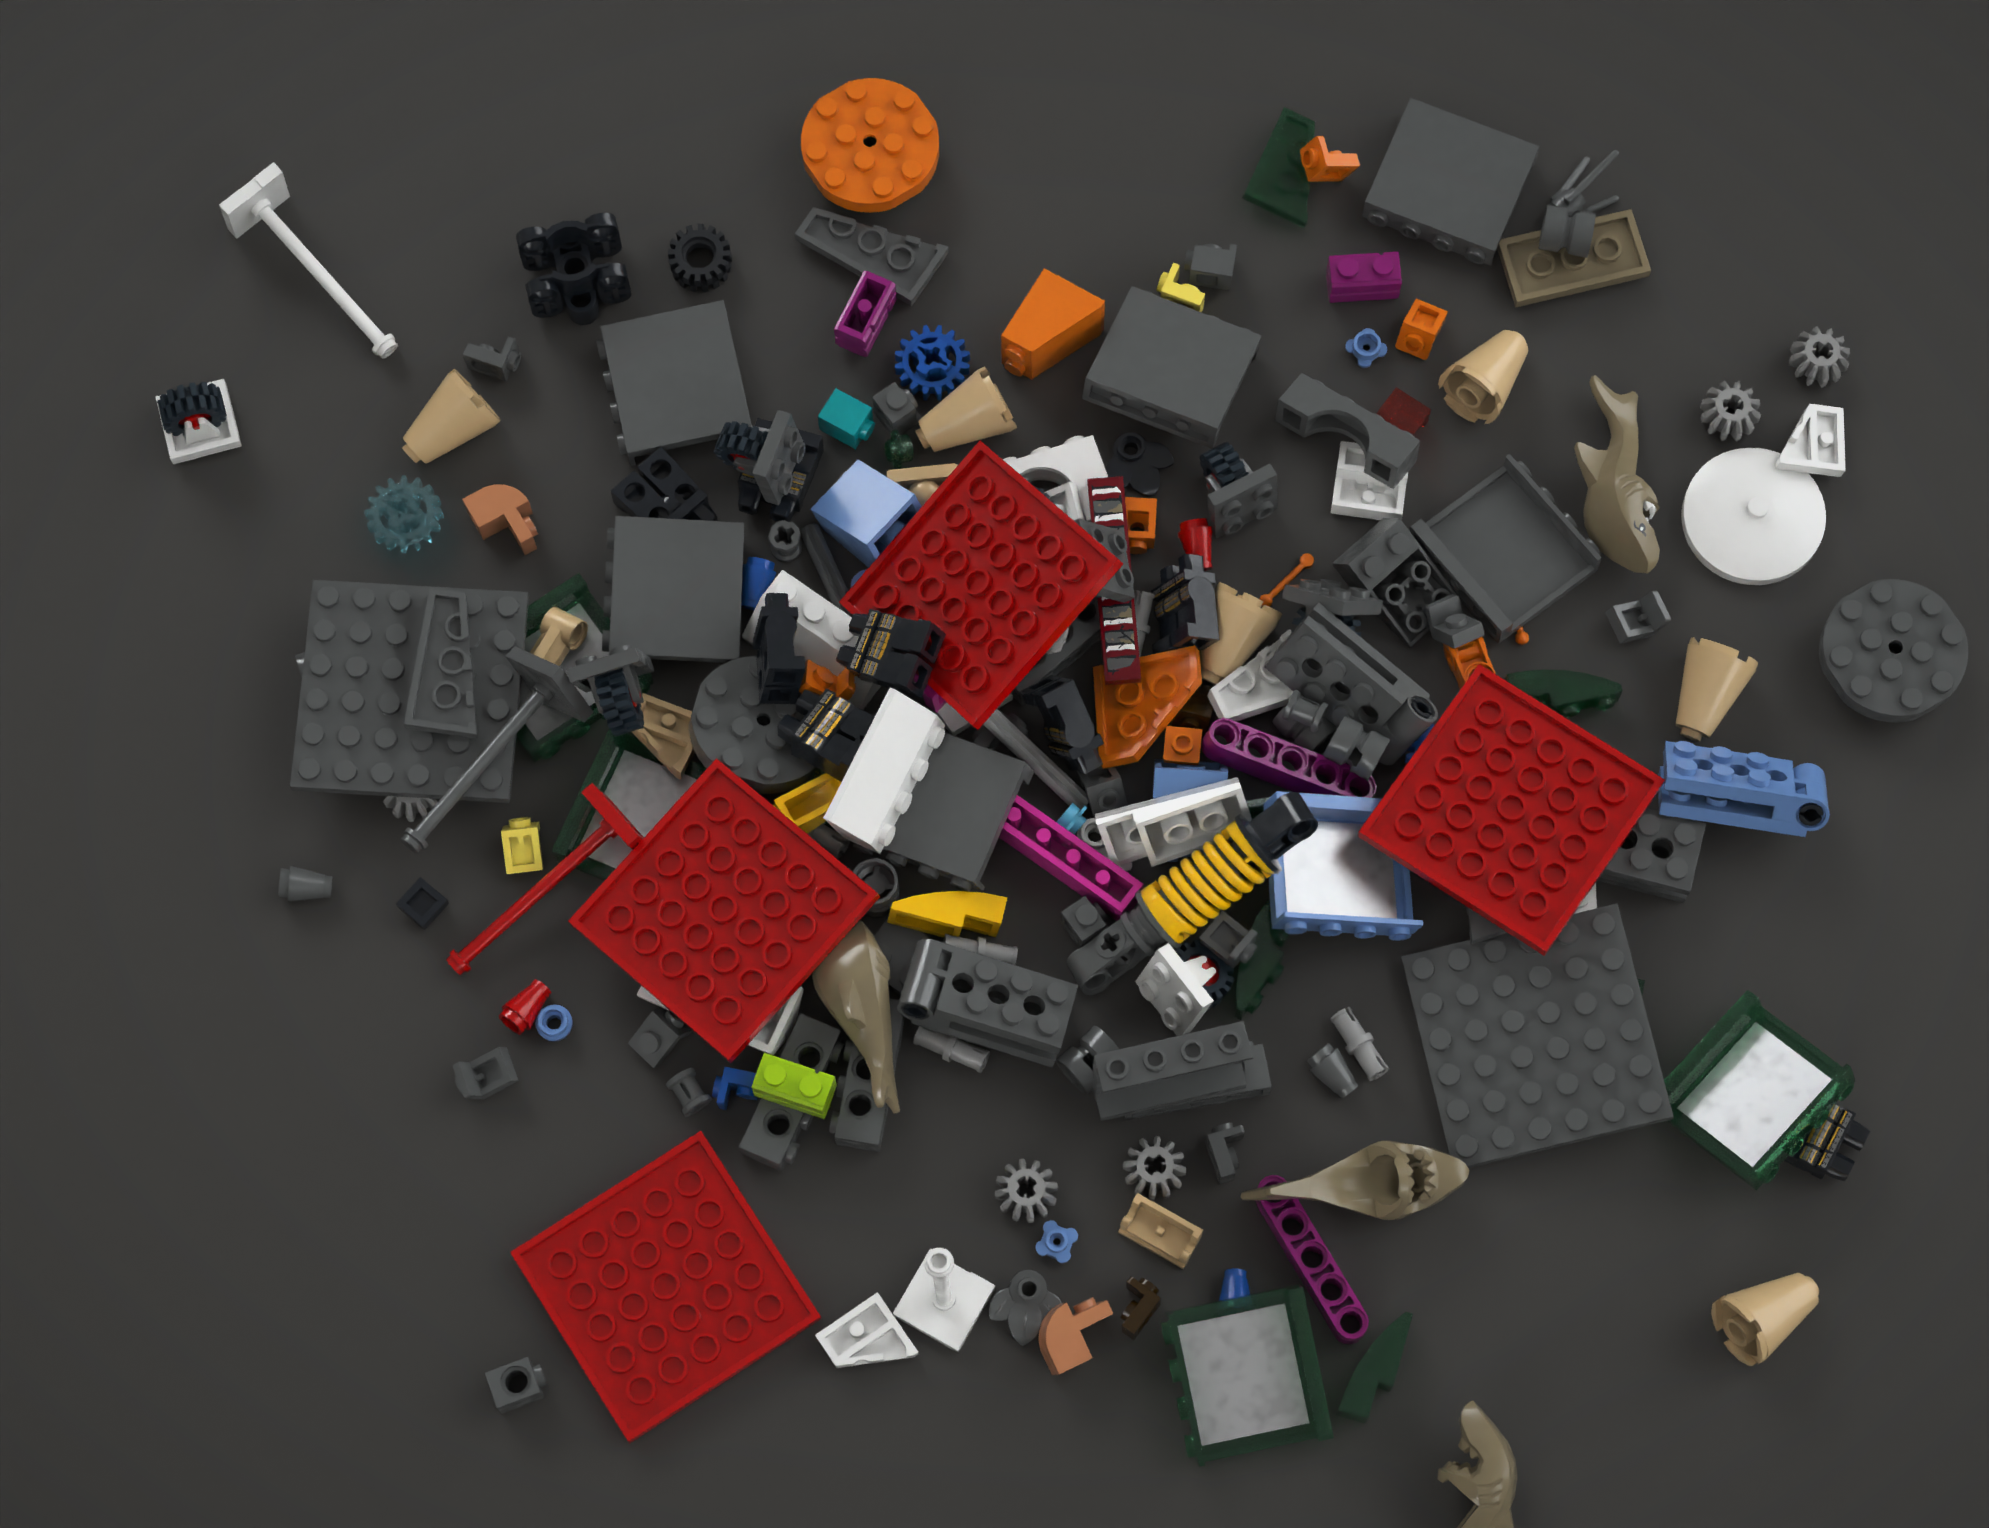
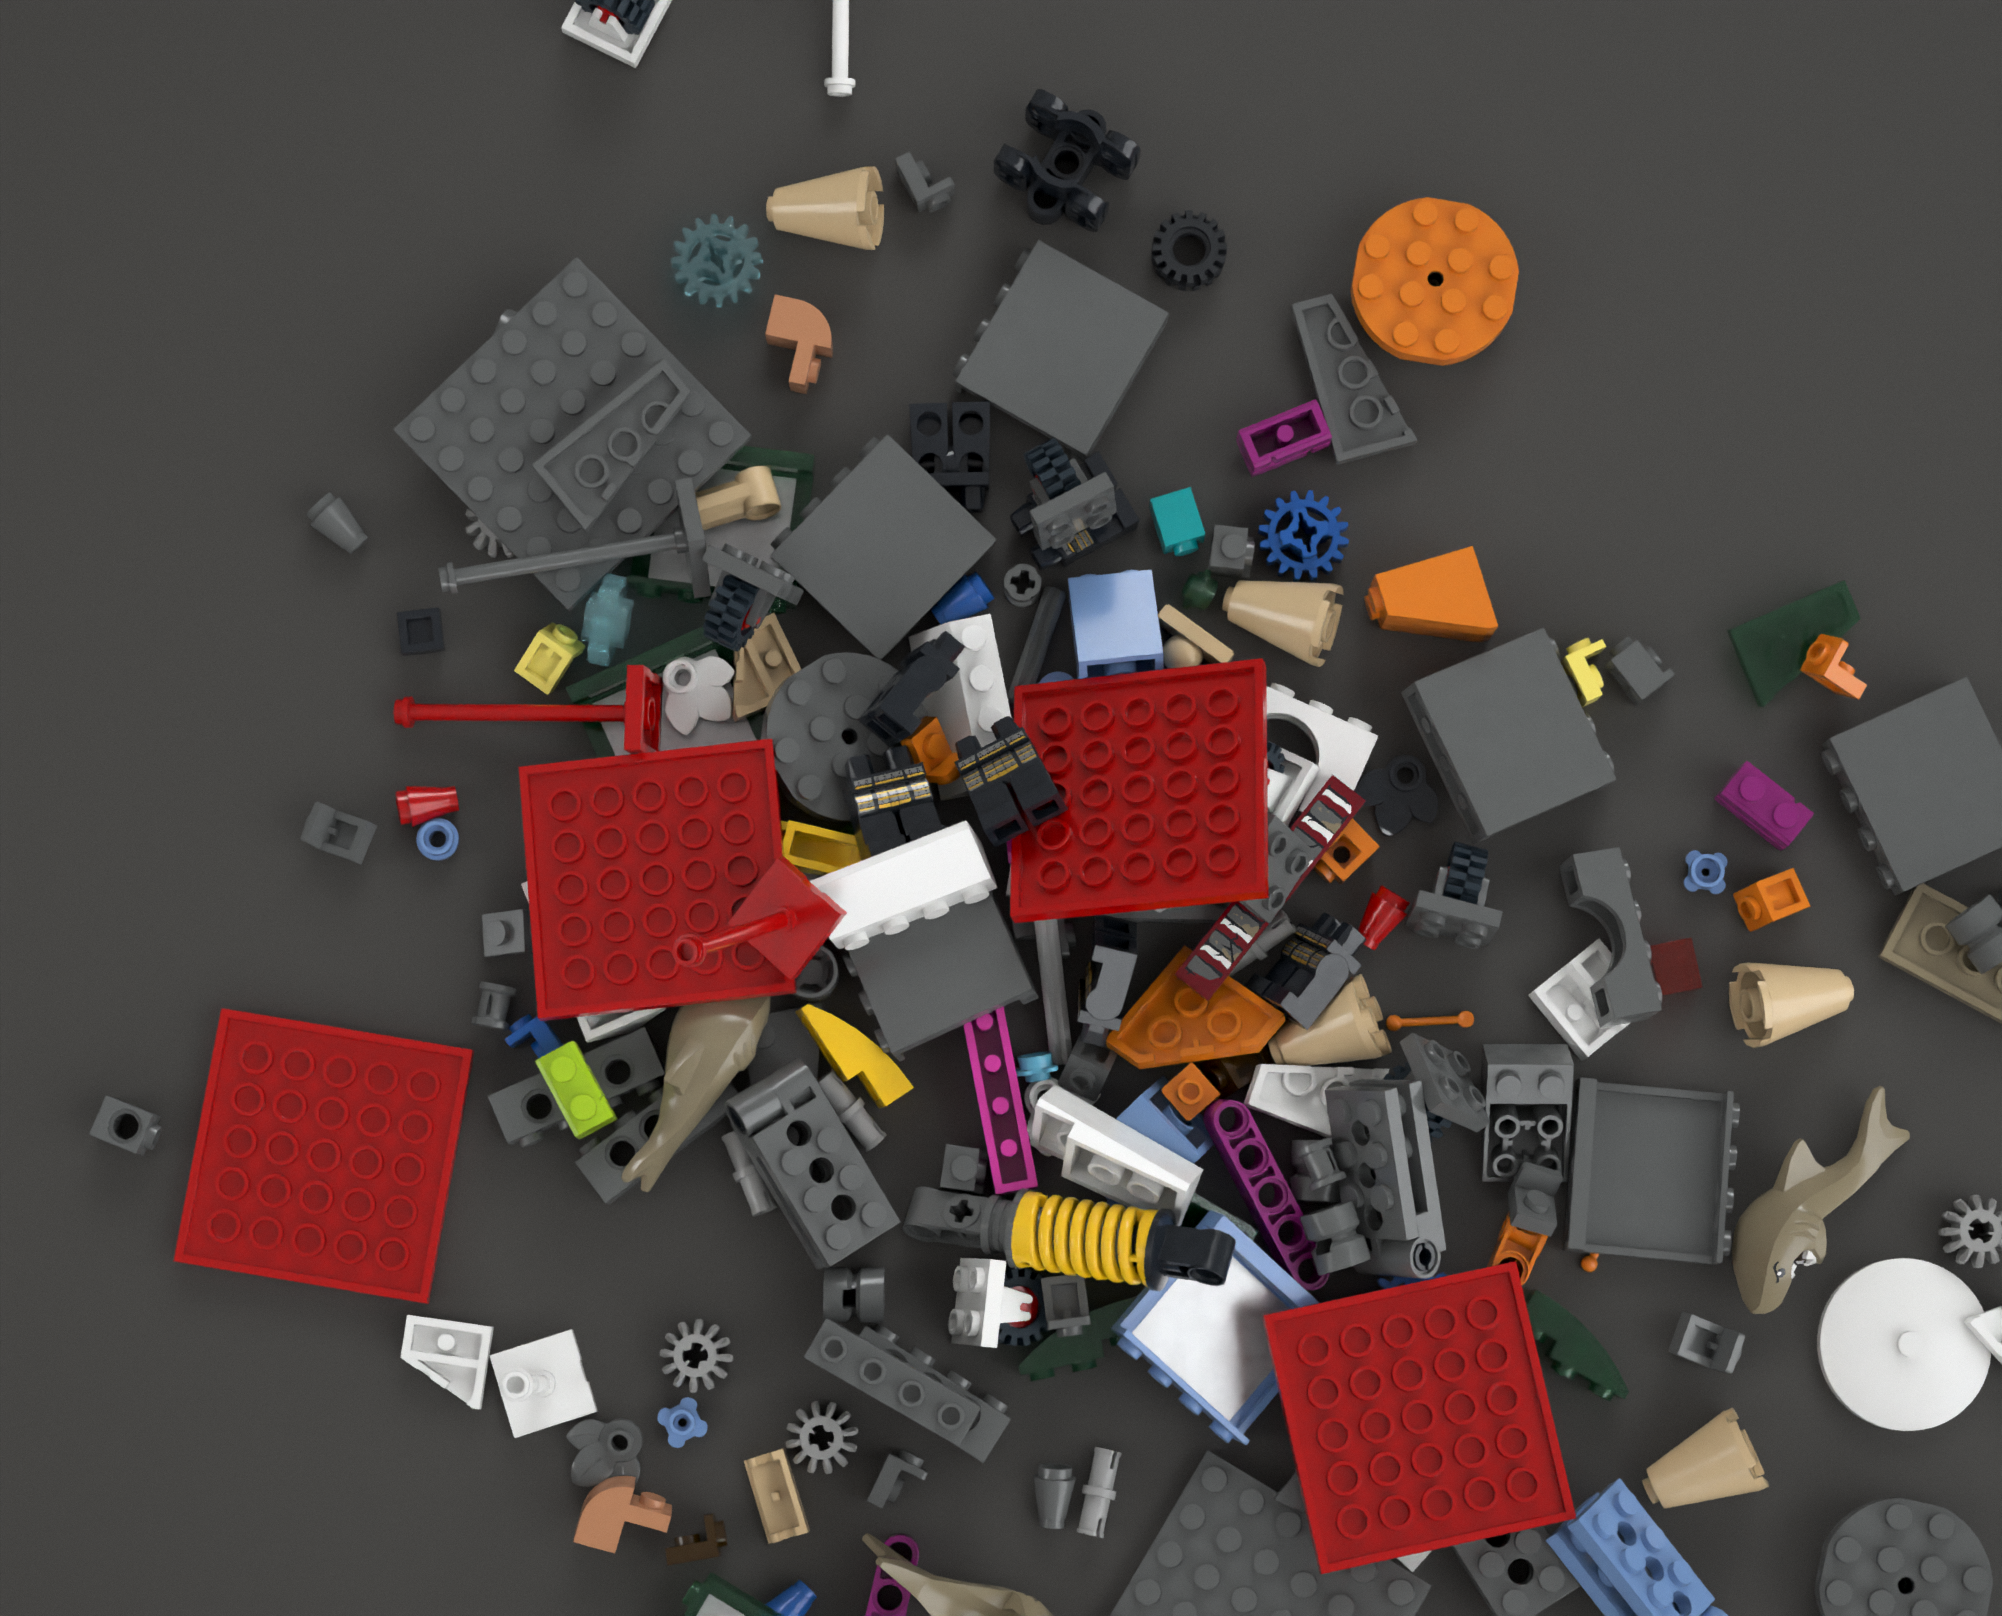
camera: 40 degrees right, 10 degrees up
(539, 785) = (607, 620): none -> clear light blue gear
(644, 782) = (703, 694): none -> white plate
(830, 850) = (779, 918): none -> red tile

